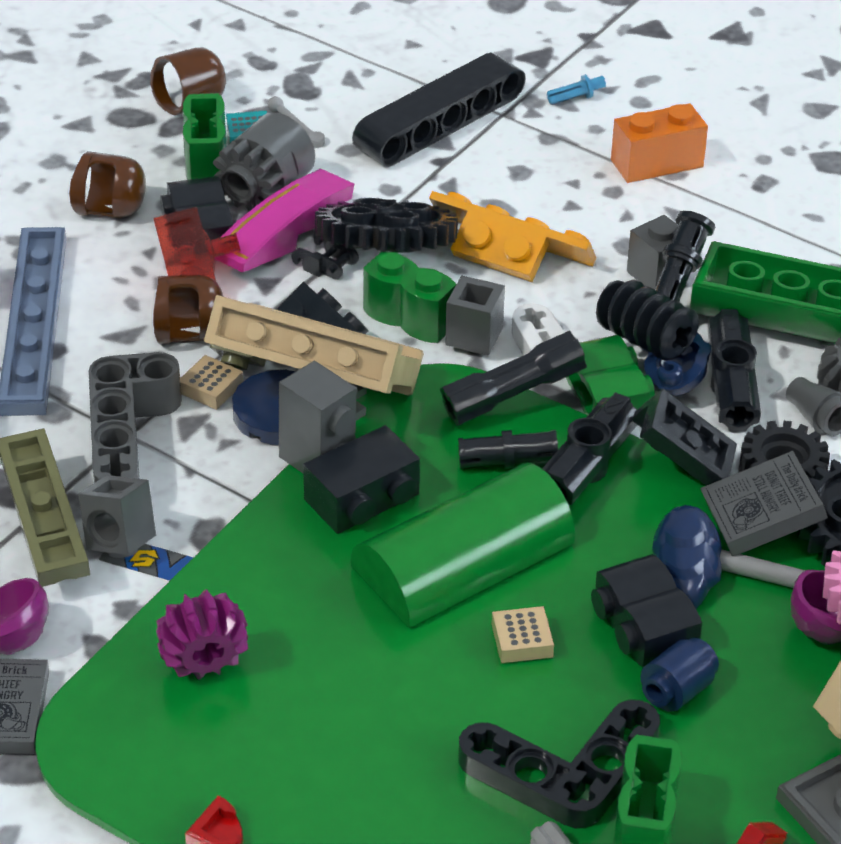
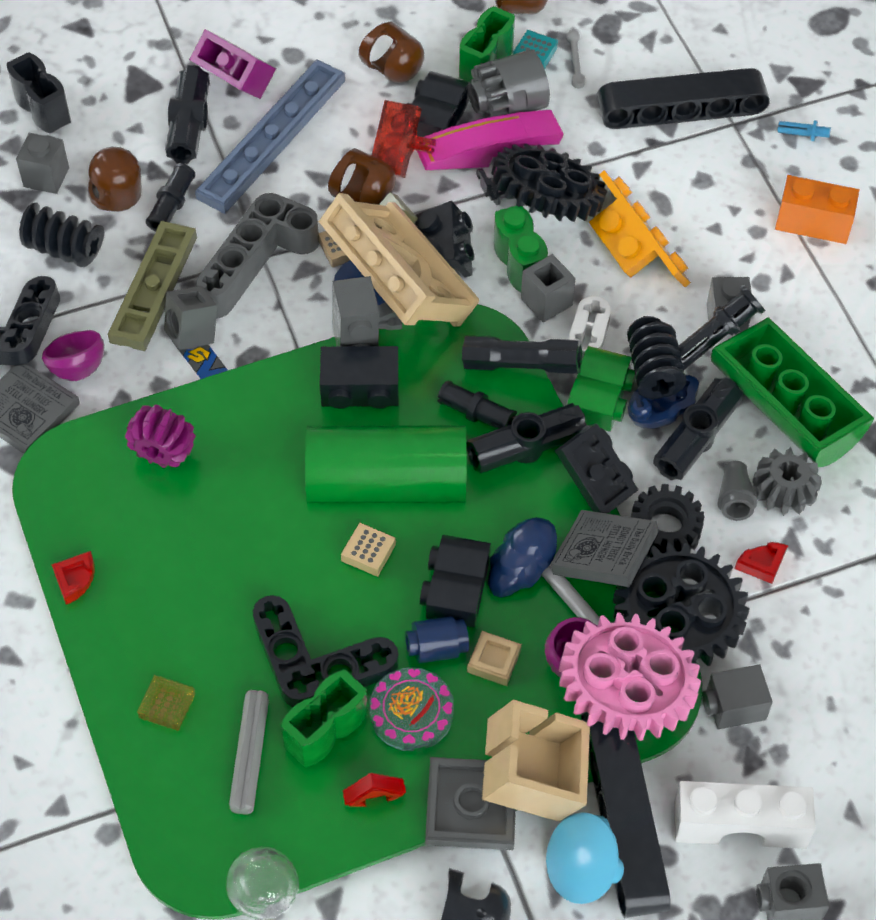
camera: 35 degrees right, 15 degrees up
(720, 754) = (411, 709): none -> clear light blue tile
(747, 665) = (494, 658): none -> tan tile

